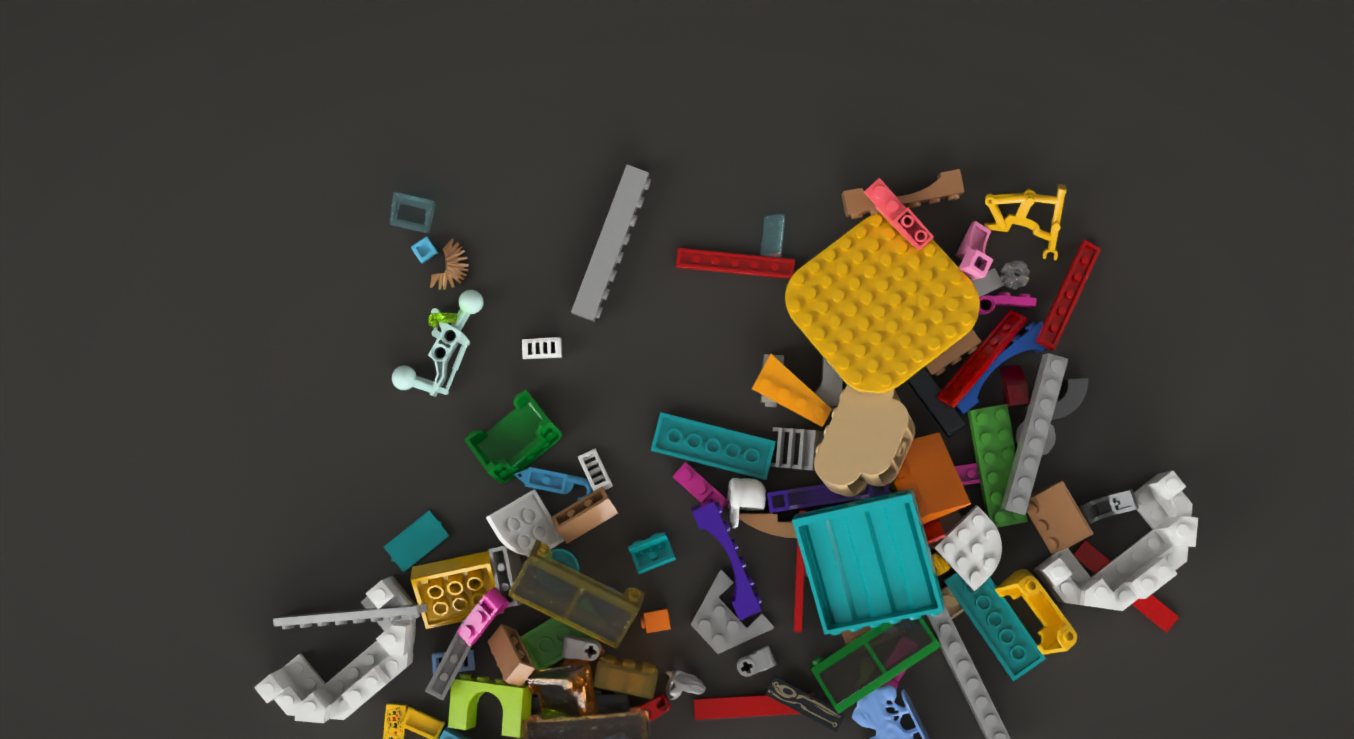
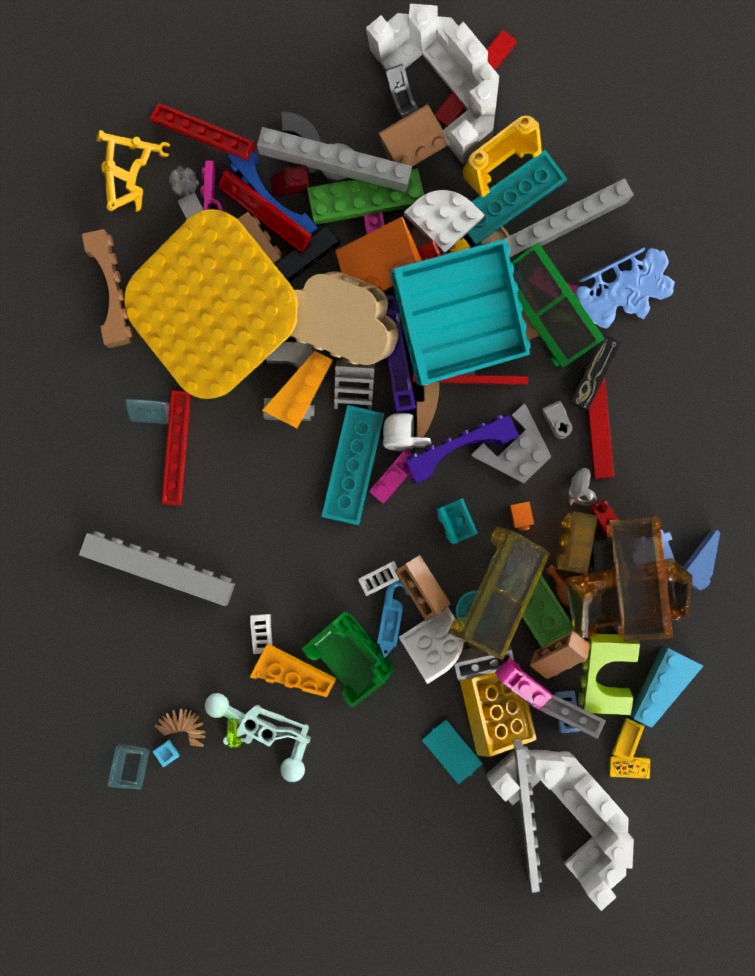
camera: 95 degrees left, 0 degrees up
(504, 374) = (286, 669): none -> light orange wing
(553, 714) = (615, 611): clear neon green arm -> none
(577, 648) = (550, 590): light grey piece -> none
(898, 215) = (126, 290): coral slope -> none
(972, 252) = (161, 221): bright pink arch -> none

